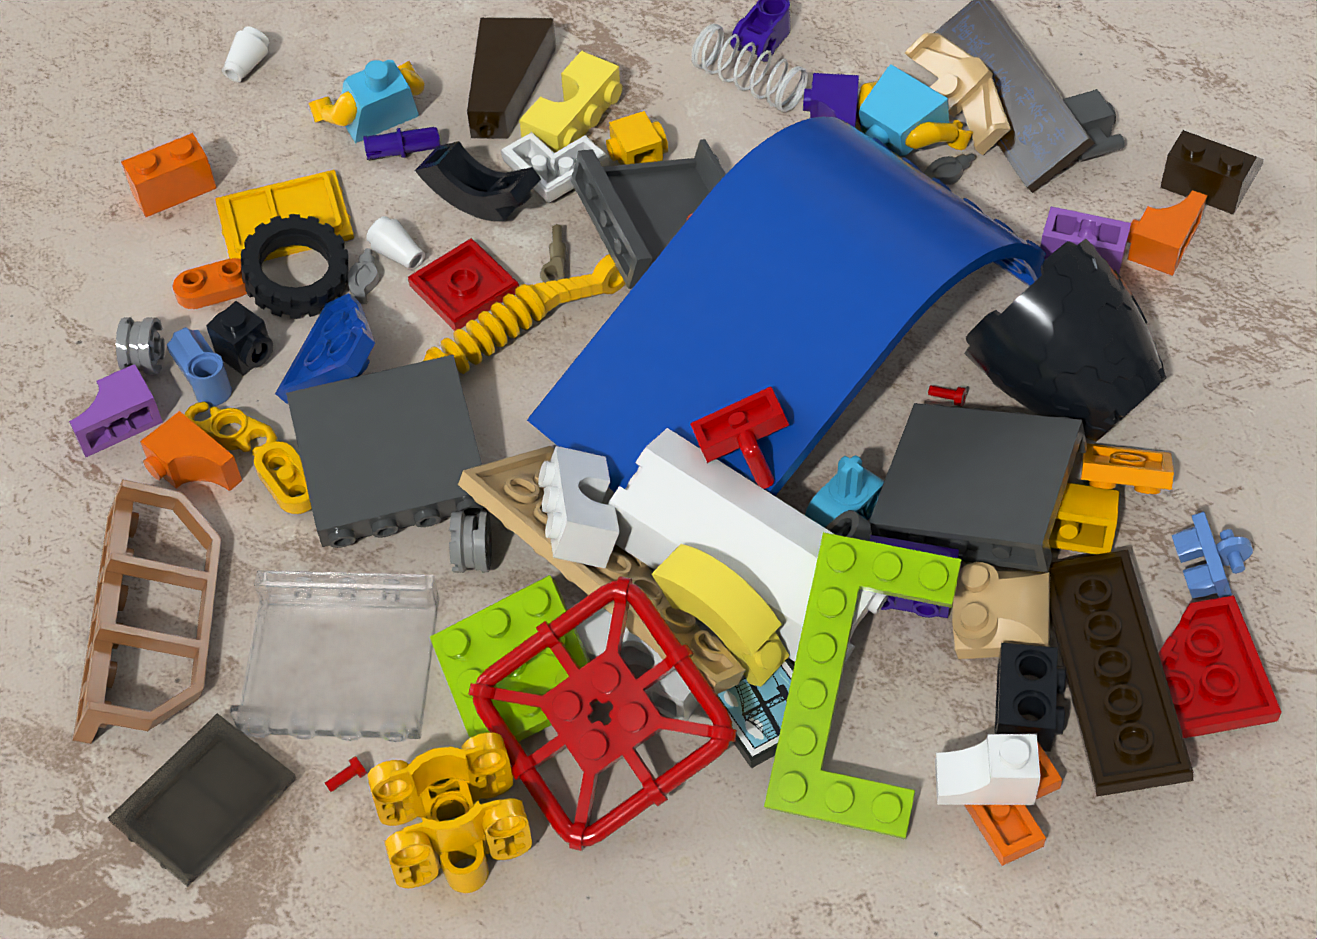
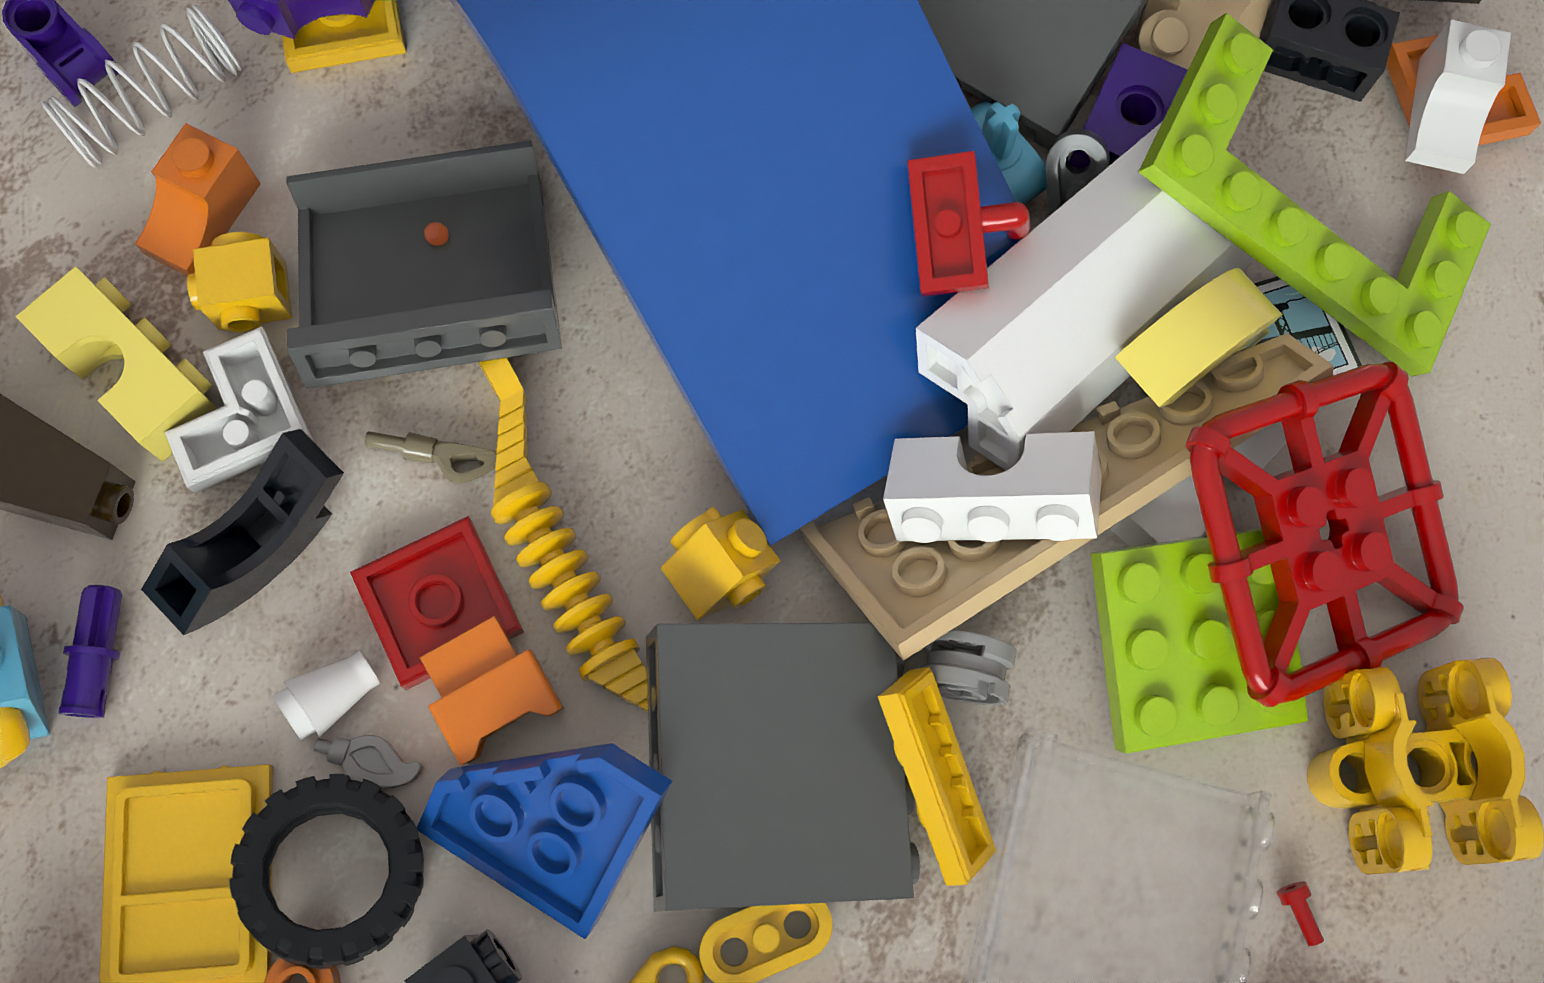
camera: 85 degrees left, 20 degrees up
(396, 527) = (937, 775): none -> yellow plate
(411, 311) = (485, 687): none -> orange piece
(510, 399) = (719, 562): none -> yellow brick
(688, 112) = (197, 197): none -> orange arch

